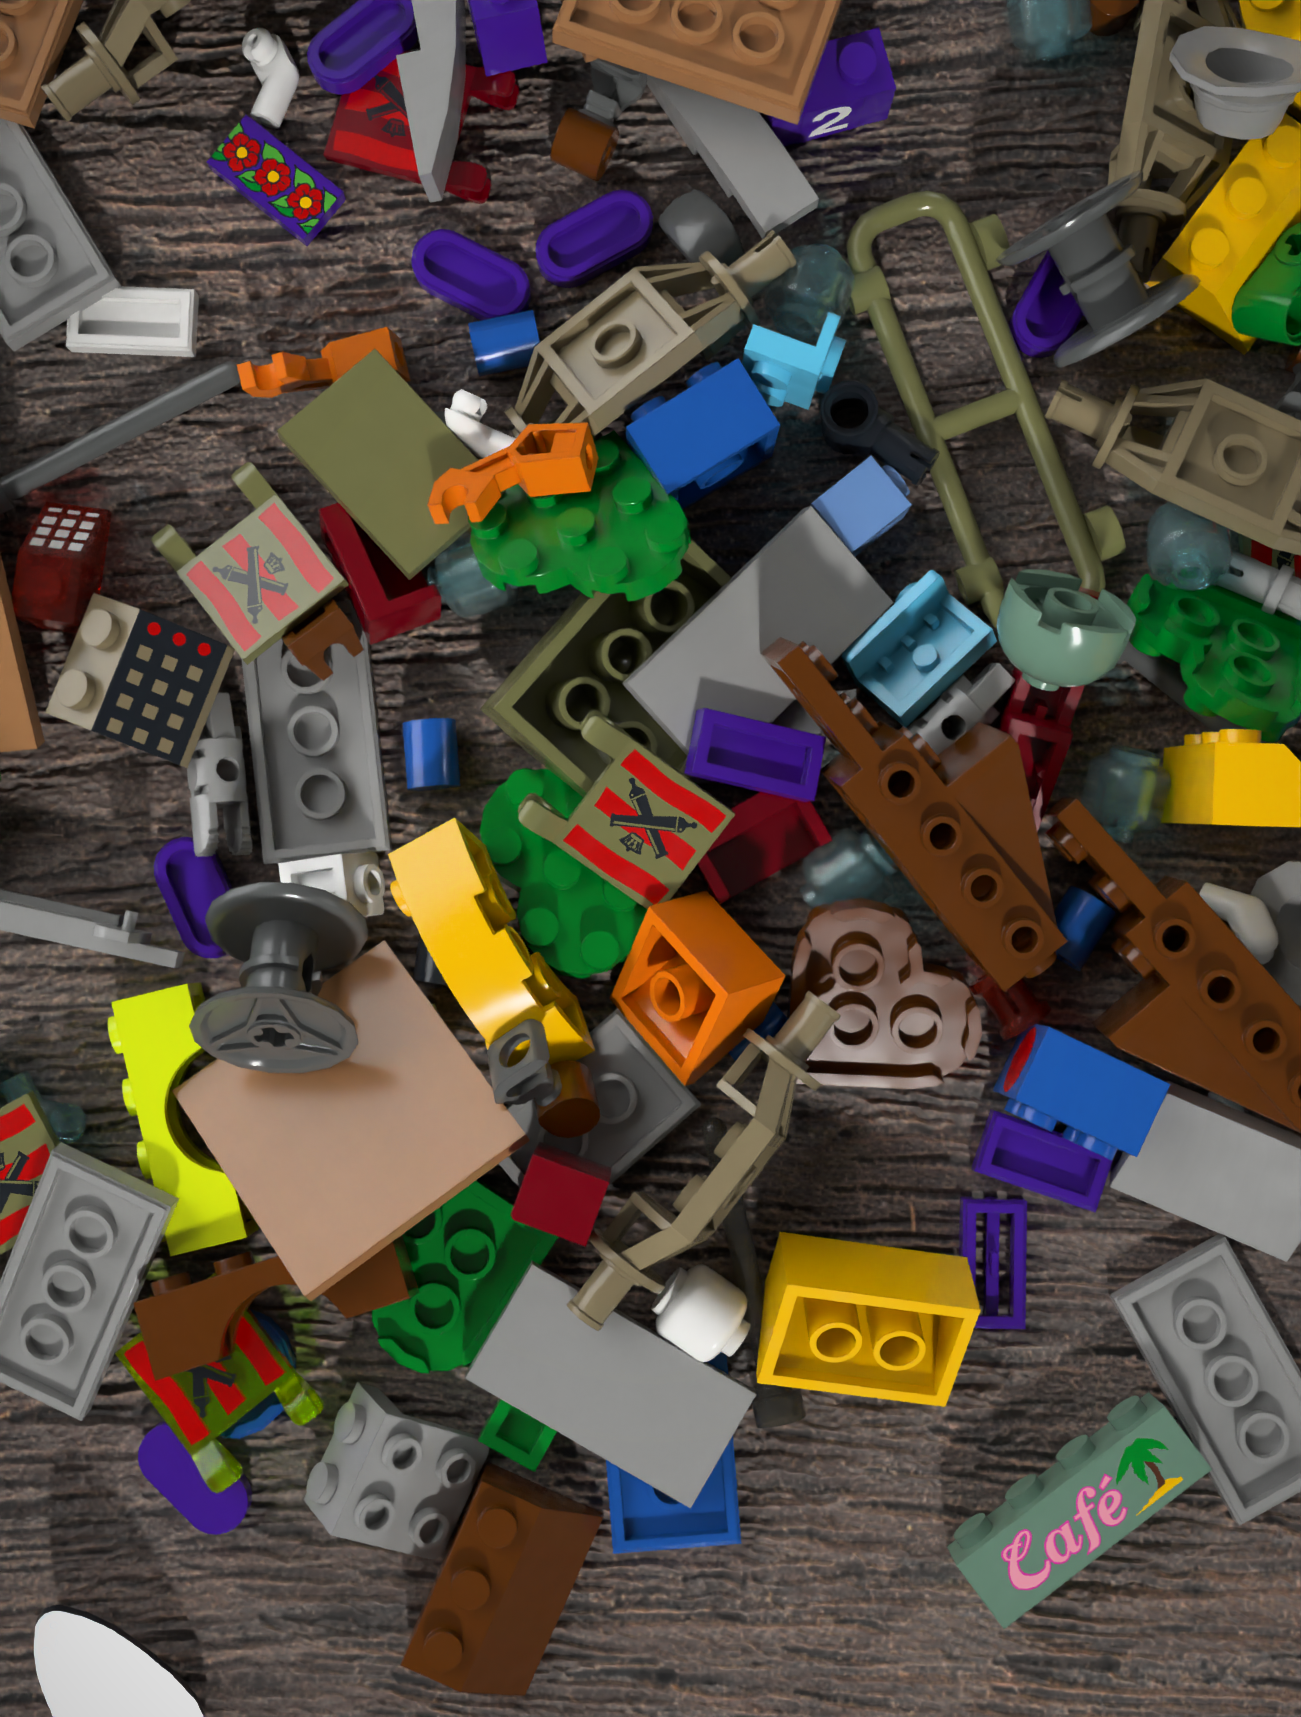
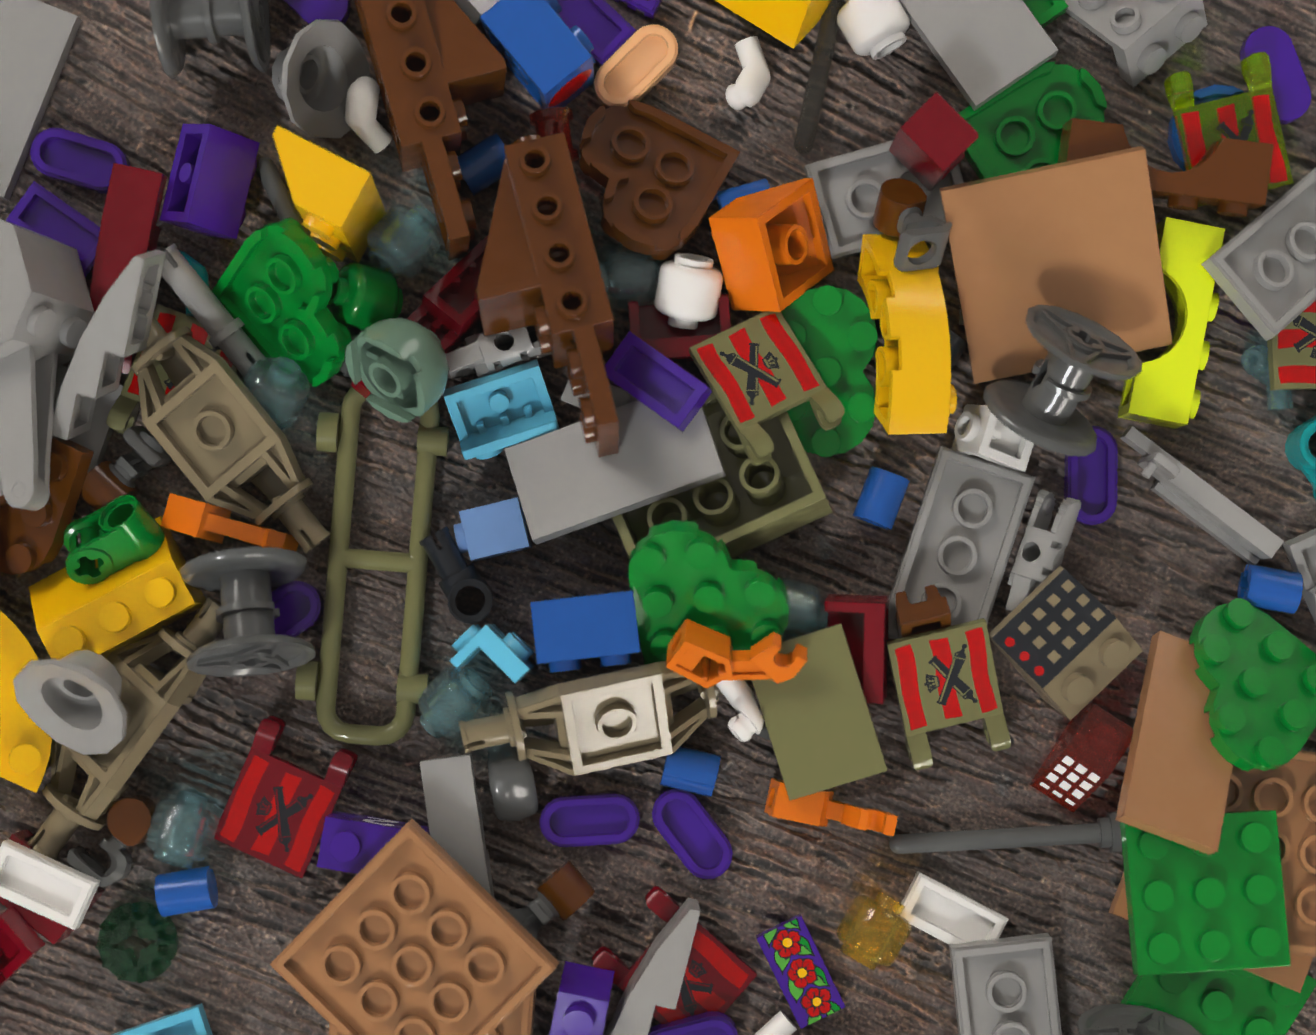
camera: 150 degrees left, 0 degrees up
(212, 257) = (873, 930): none -> clear yellow head
(710, 1199) = (855, 81): dark tan plate -> none
(768, 887) = (688, 290): none -> white head
(810, 1177) = (753, 78): none -> white arm
(952, 92) = (280, 807): none -> flag
(952, 1129) = (636, 66): none -> light nougat tile
(1138, 703) = (365, 296): none -> green head
(1200, 356) = (214, 523): none -> orange piece

